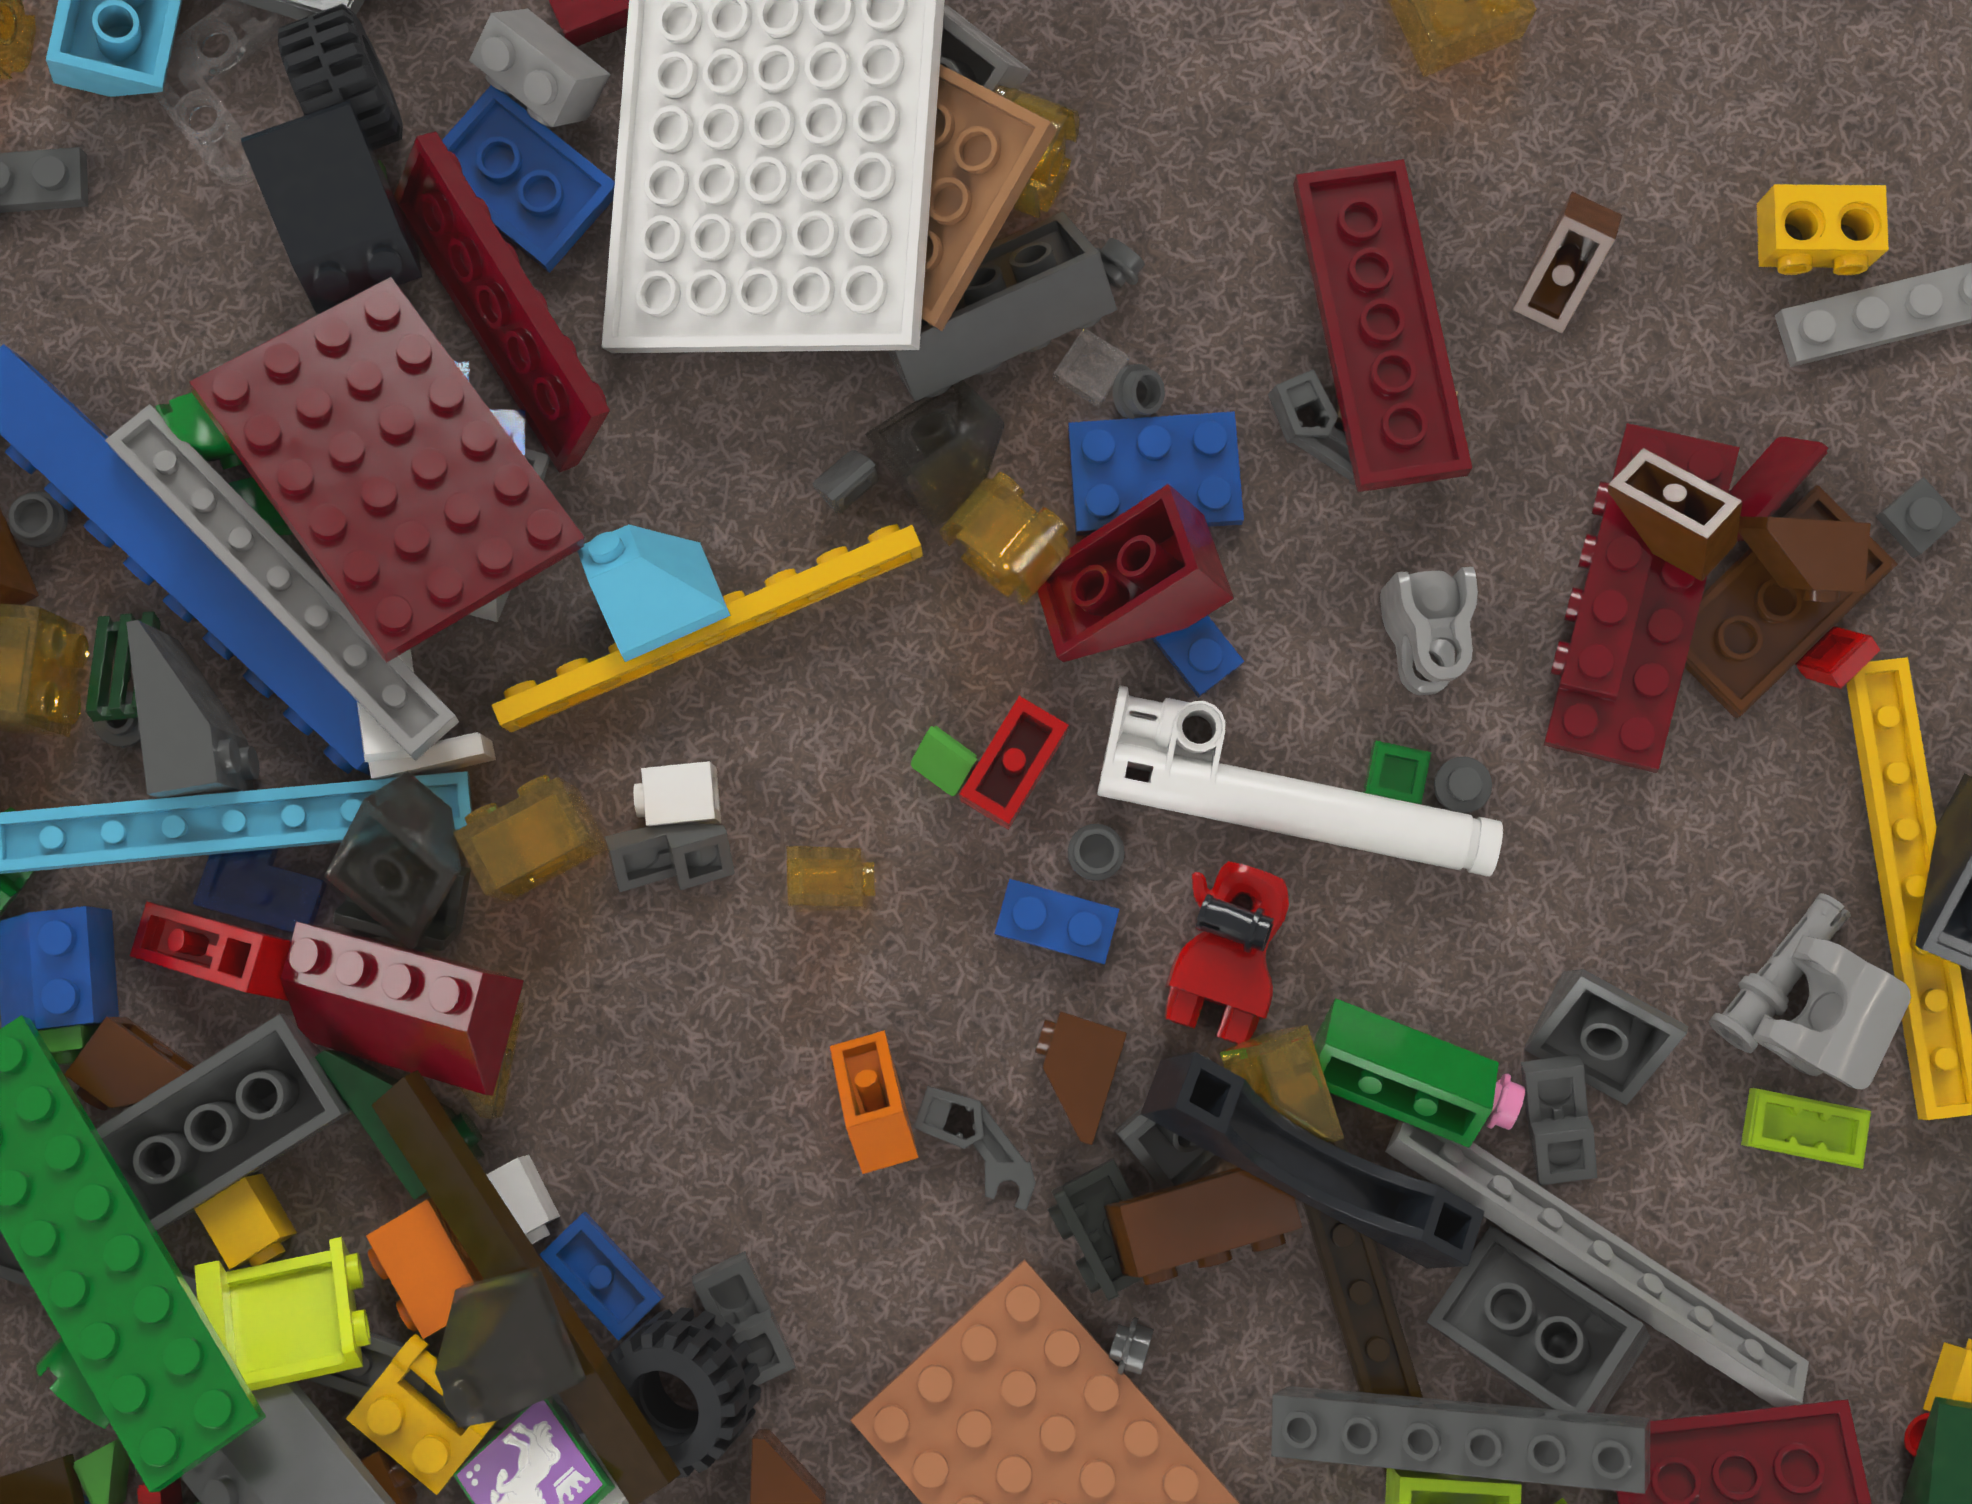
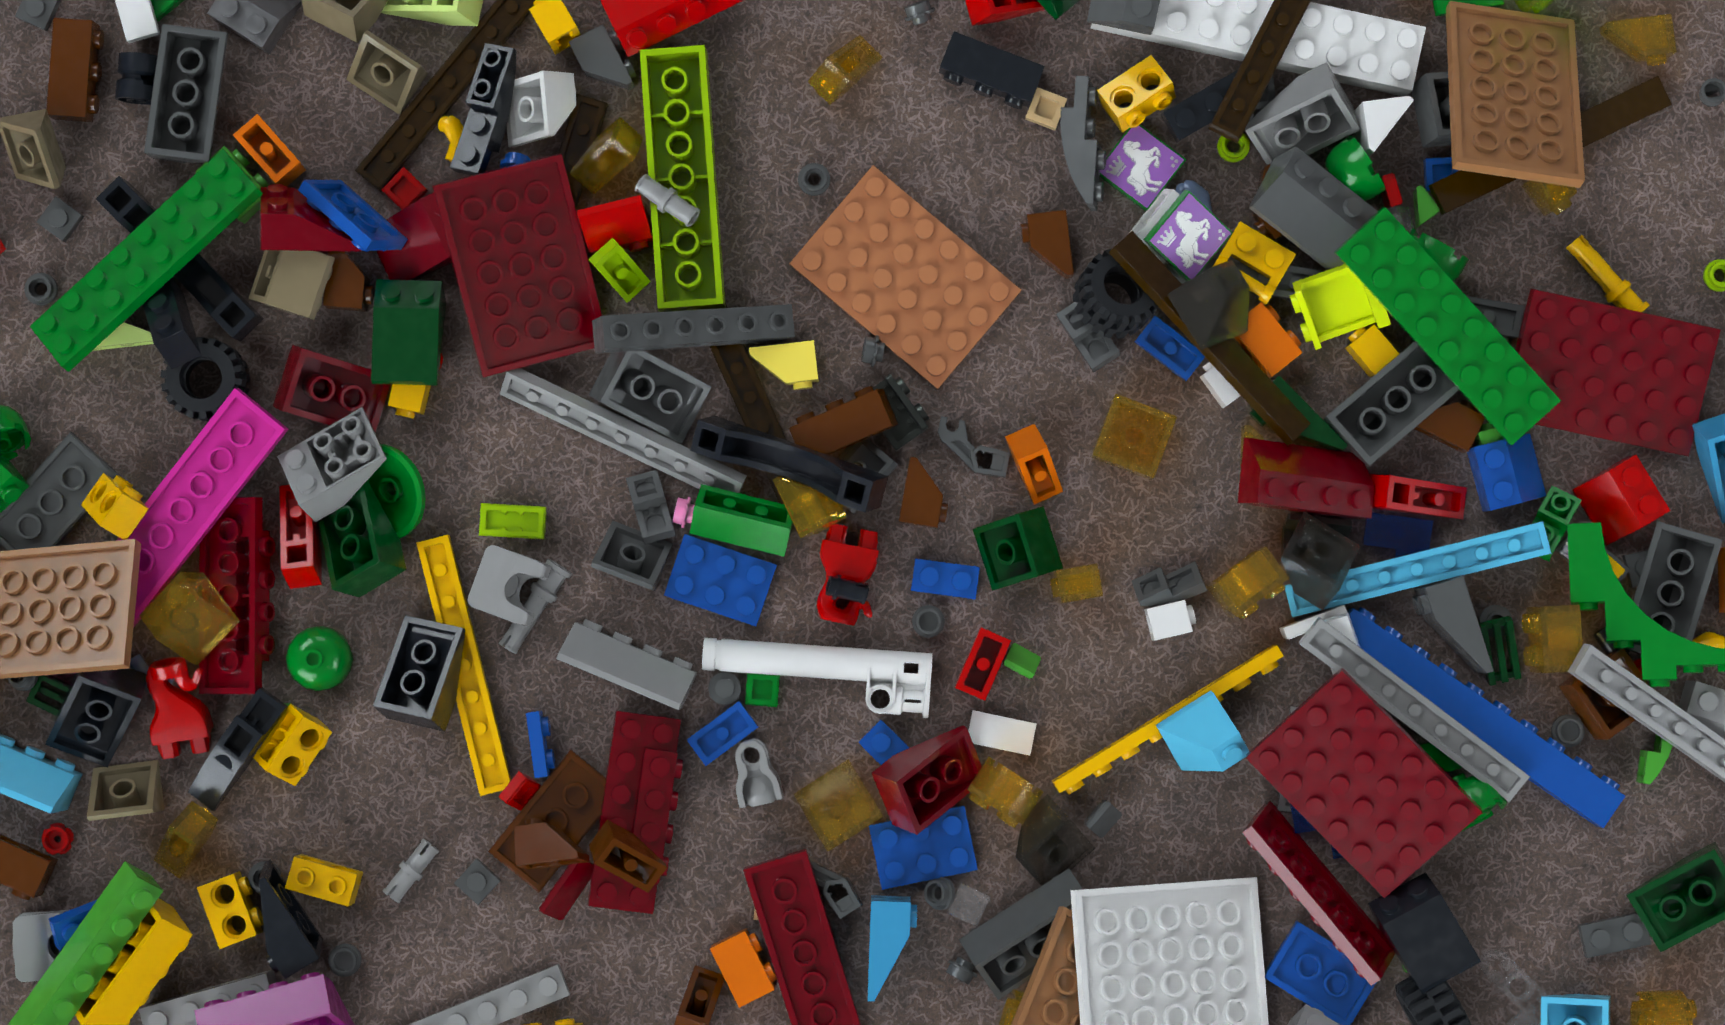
camera: 175 degrees right, 5 degrees up
(690, 1125) = (1133, 436): none -> clear yellow brick
(922, 956) = (1018, 548): none -> dark green slope
(995, 645) = (1001, 732): none -> white tile
(1232, 347) = (889, 932): none -> dark azure slope
(1282, 1347) = (789, 362): none -> light yellow slope
(1291, 558) = (838, 805): none -> clear yellow slope
(1449, 973) = (720, 580): none -> blue plate
(1475, 708) = (722, 733): none -> blue plate
(1485, 315) = (743, 967): none -> orange brick
(1635, 844) = (628, 665): none -> light grey slope
(1797, 754) = (538, 729): none -> blue plate

